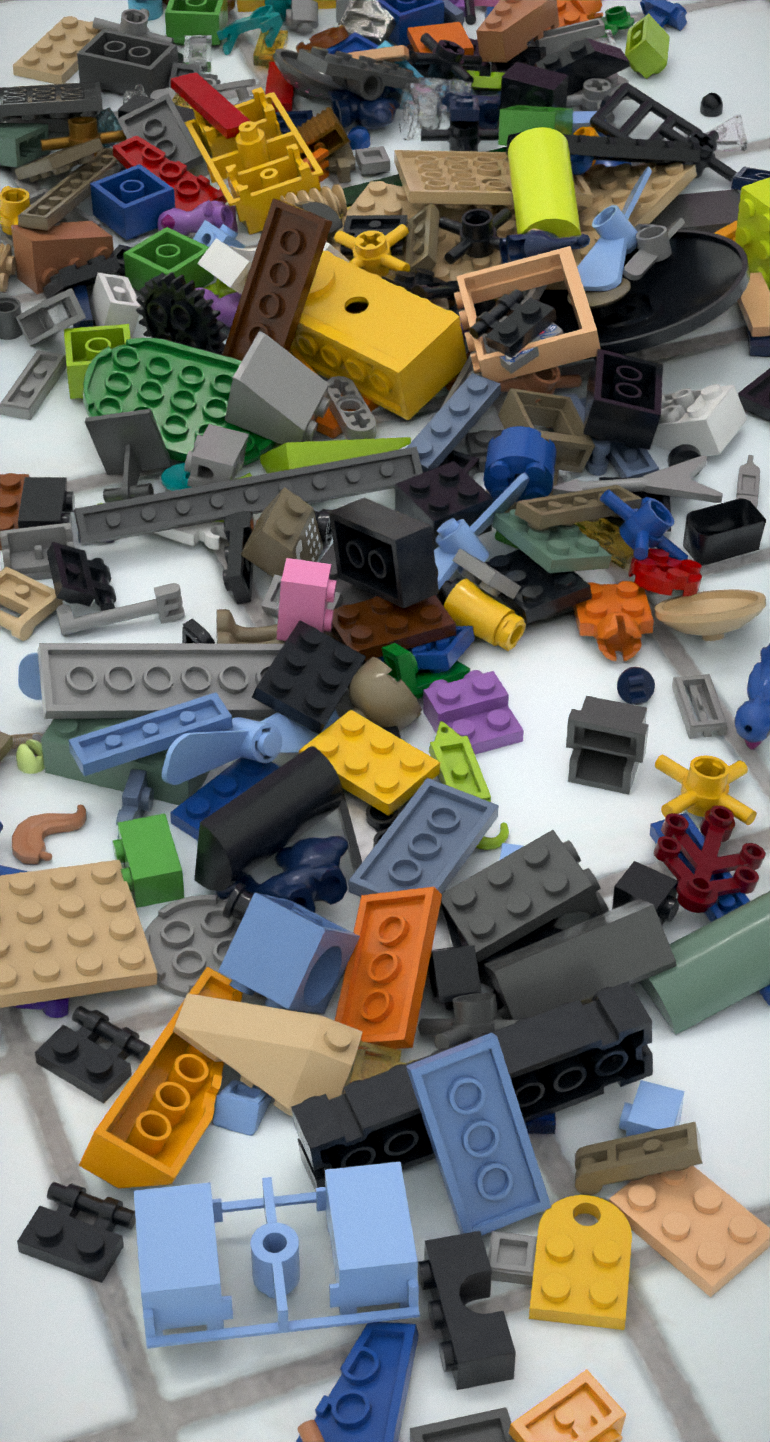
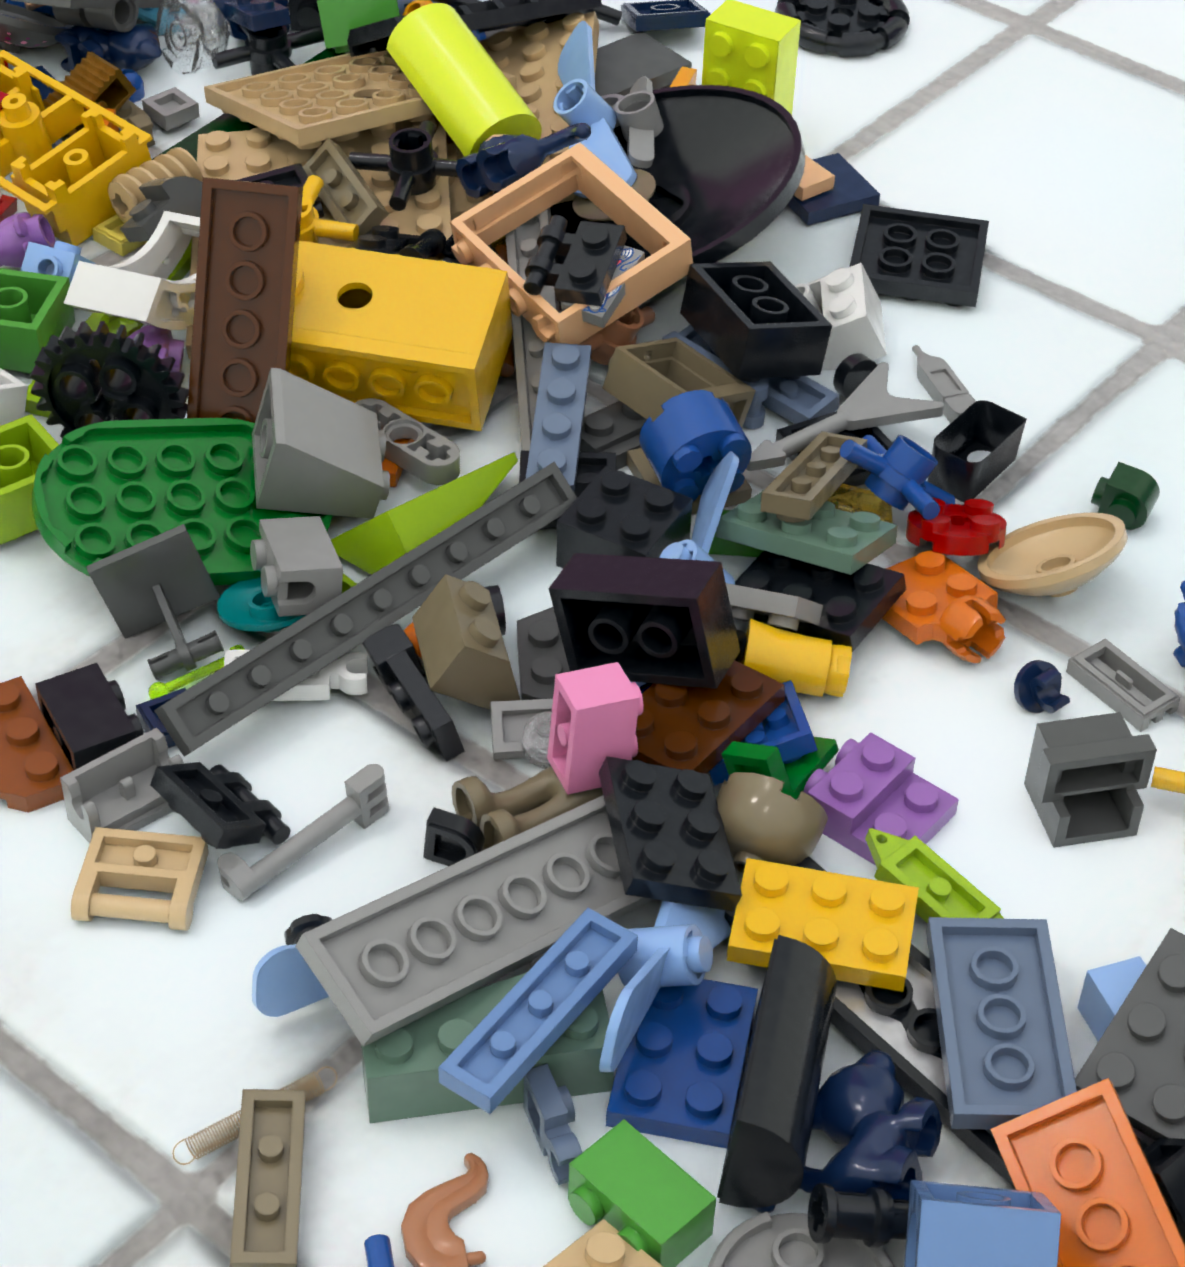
camera: 30 degrees left, 0 degrees up
(25, 757) = (334, 1112): yellowish green hinge -> none

